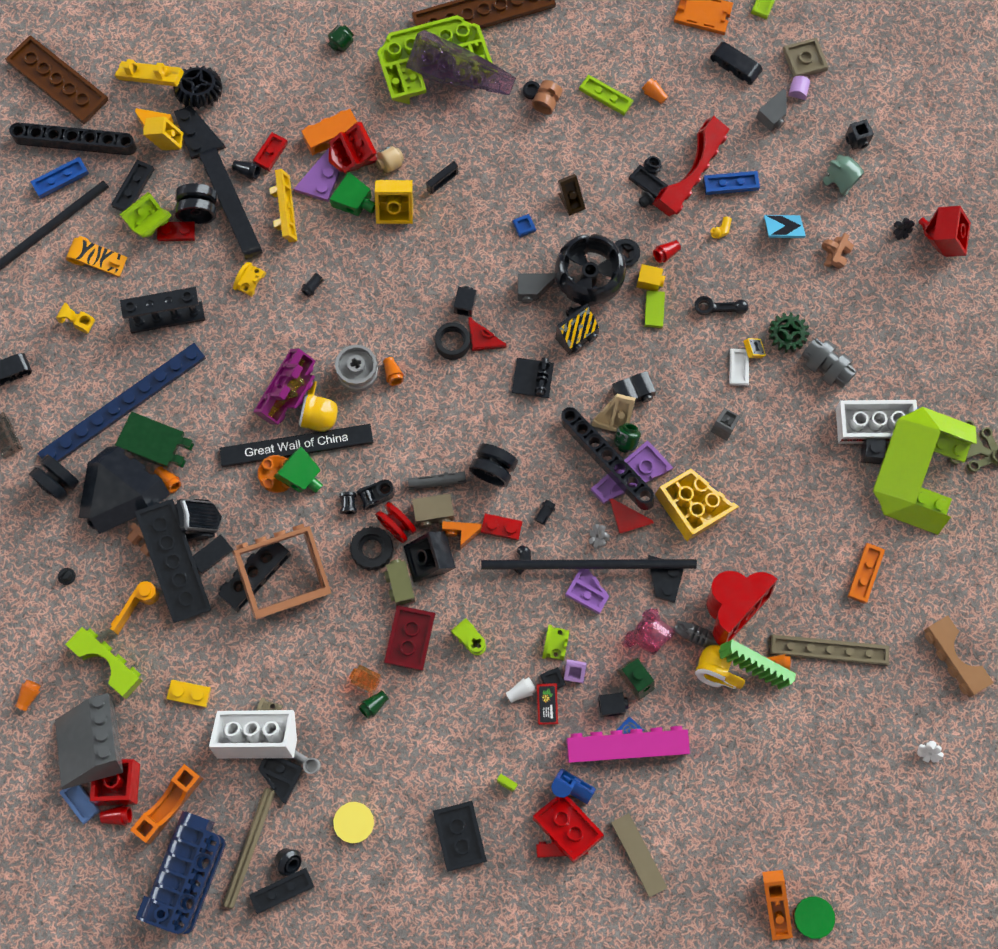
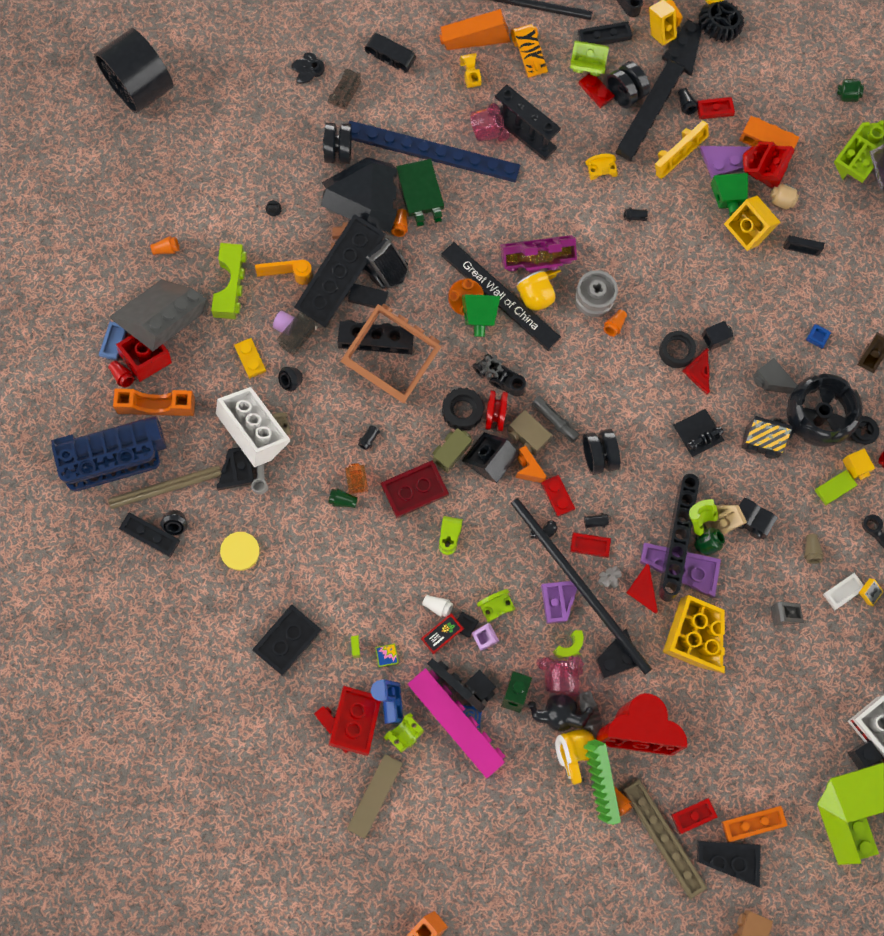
camera: 50 degrees right, 0 degrees up
(43, 288) = (476, 31): none -> orange slope
(138, 340) = (489, 124): none -> clear pink piece
(180, 641) = (282, 320): none -> lavender brick
(199, 637) = (297, 333): none -> clear smoke hinge
(234, 672) = (290, 378): none -> black cone
(337, 643) = (368, 438): none -> black pin
(351, 500) = (497, 366): none -> dark grey gear
(531, 762) = (386, 655): none -> tile
(560, 531) = (590, 545): none -> red tile
(596, 722) = (455, 682): none -> black wing
(601, 426) = (703, 512): none -> lime piece
(606, 793) = (405, 733): none -> lime piece
(634, 603) = (577, 642): none -> lime piece
(679, 657) = (560, 713): none -> black piece
(690, 364) = (813, 550): none -> dark tan cone
(829, 614) = (694, 816): none -> red plate
(880, 610) = (734, 859): none -> black wing

